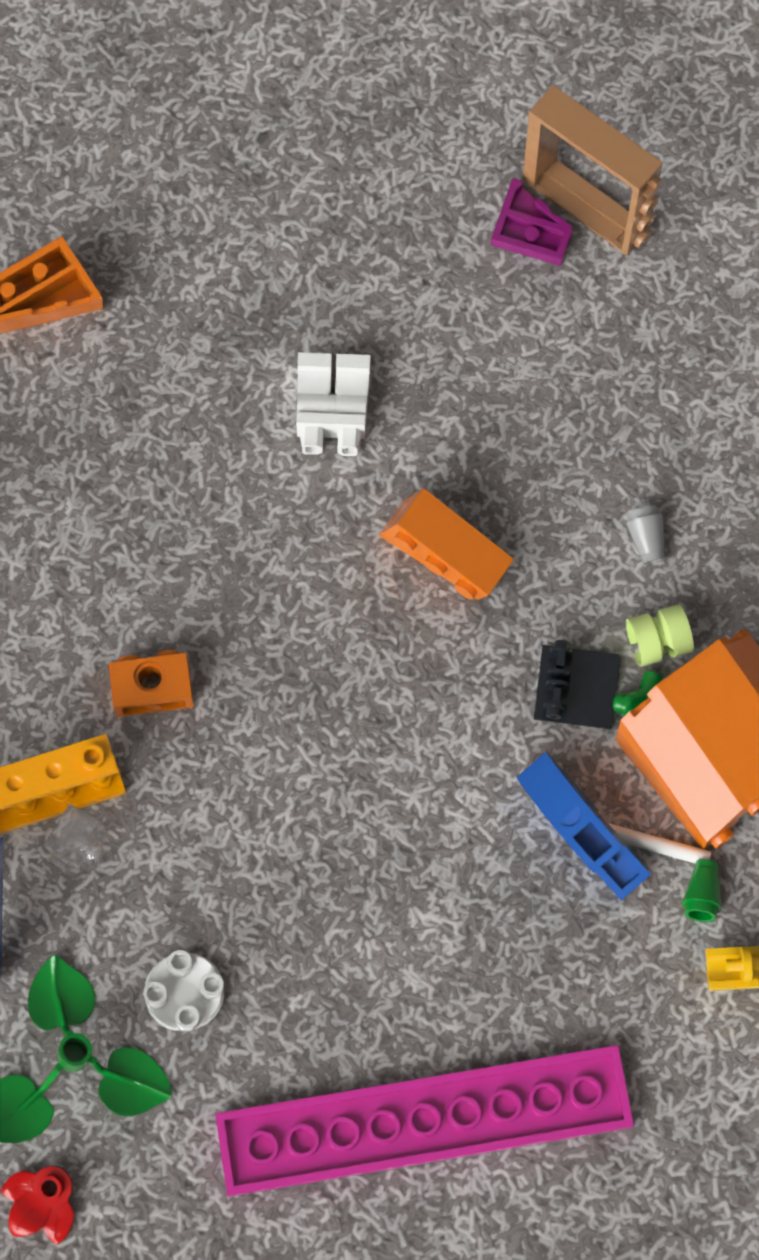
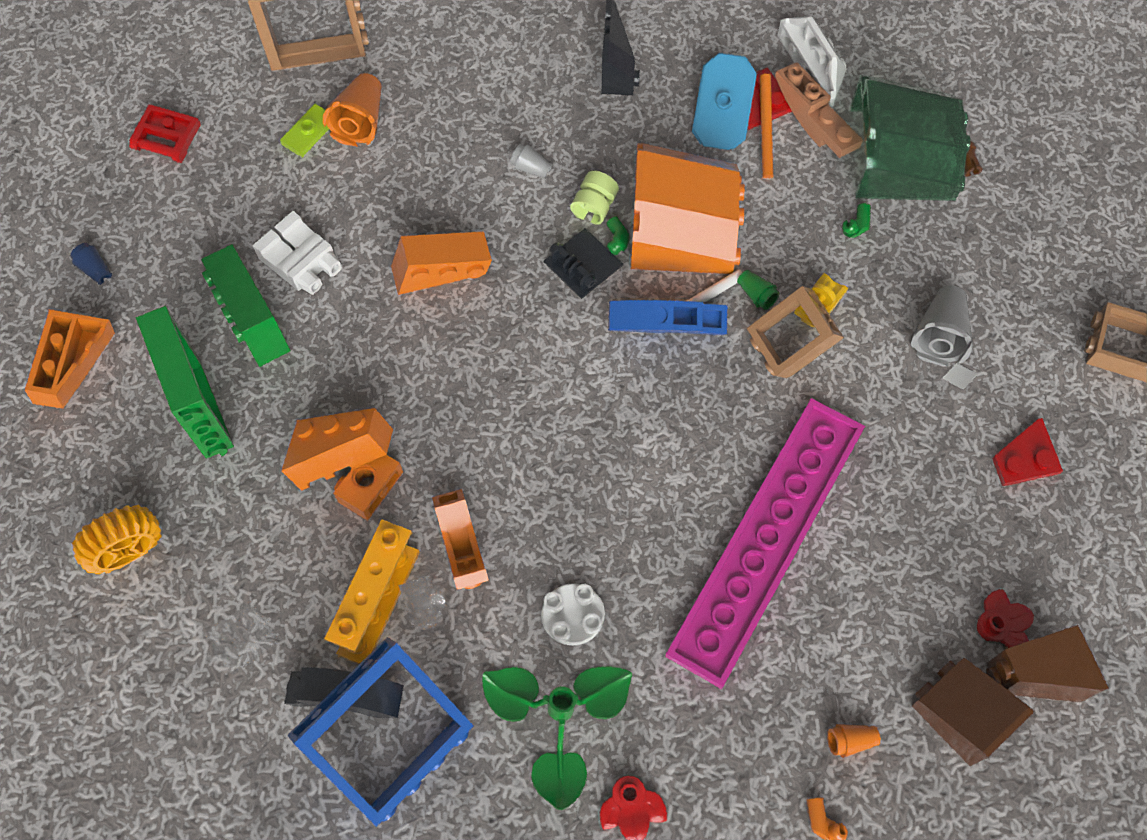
camera: 50 degrees left, 5 degrees down
(89, 432) = (184, 382): none -> green window
(151, 218) = (90, 262): none -> dark blue cone
(155, 619) = (335, 442): none -> orange wedge
(164, 824) = (460, 540): none -> orange arch
(230, 401) = (244, 305): none -> green wedge
(363, 143) = (166, 125): none -> red plate
(484, 281) = (305, 132): none -> lime plate
(530, 227) = (303, 84): magenta wing -> none
(545, 308) = (355, 111): none -> orange cone
(702, 982) = (819, 317): none -> medium nougat window

